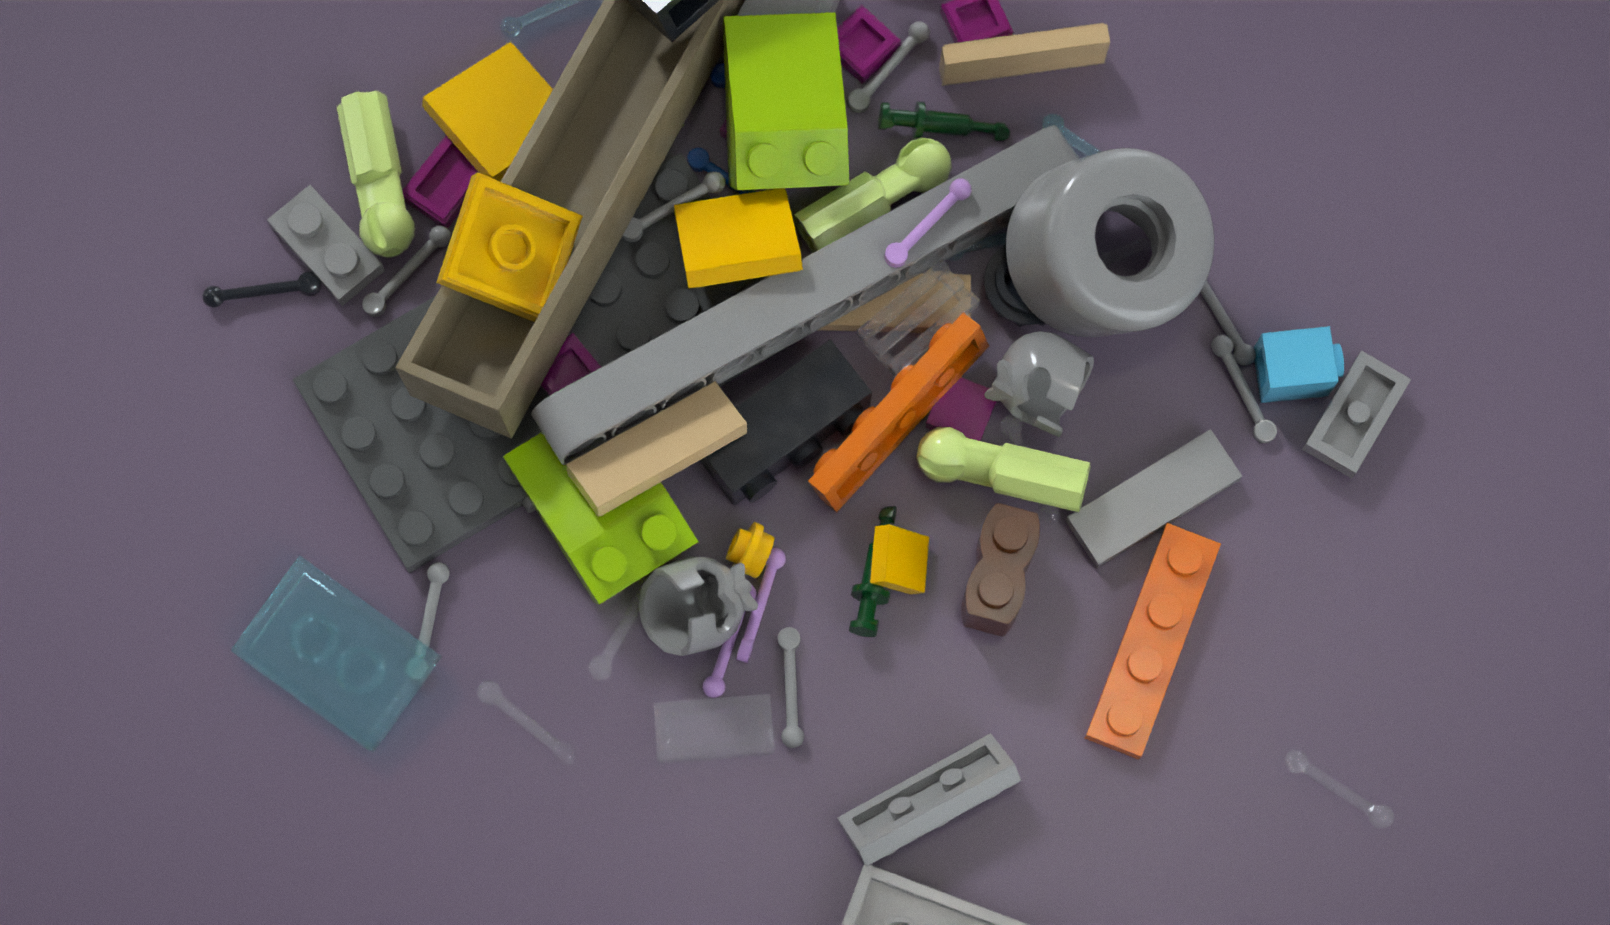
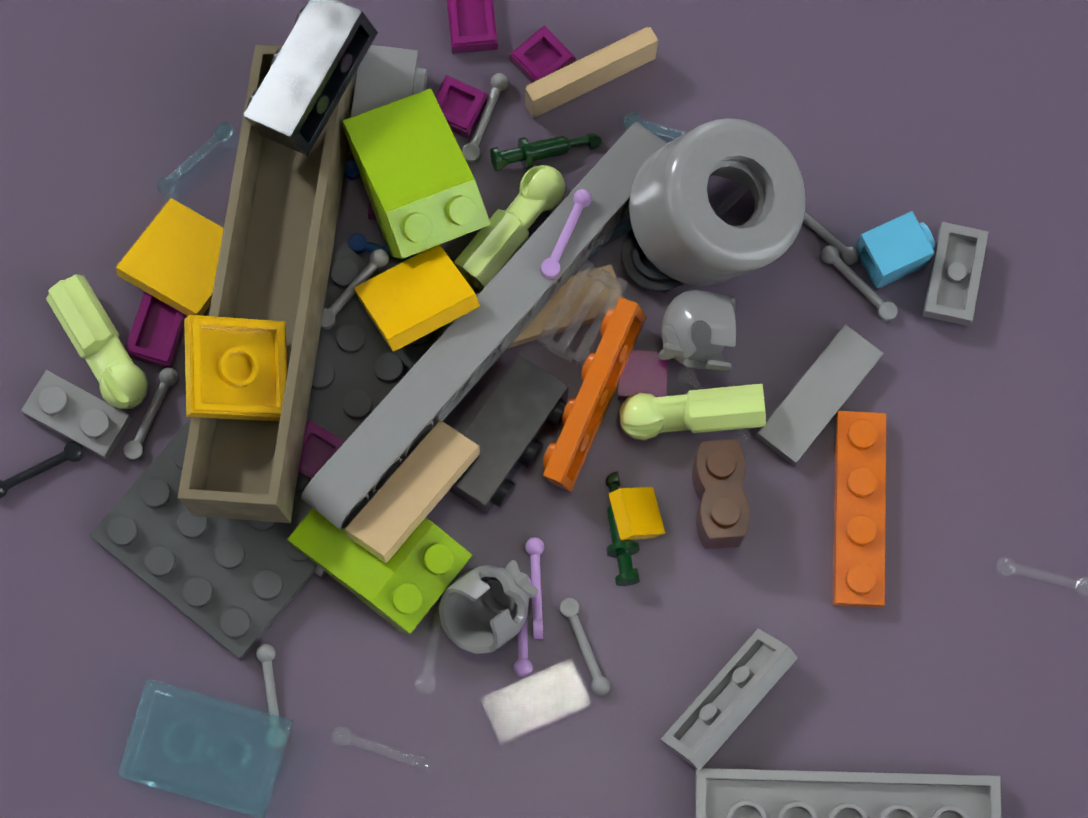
camera: 20 degrees left, 0 degrees up
(751, 548) = (514, 545): yellow plate -> none

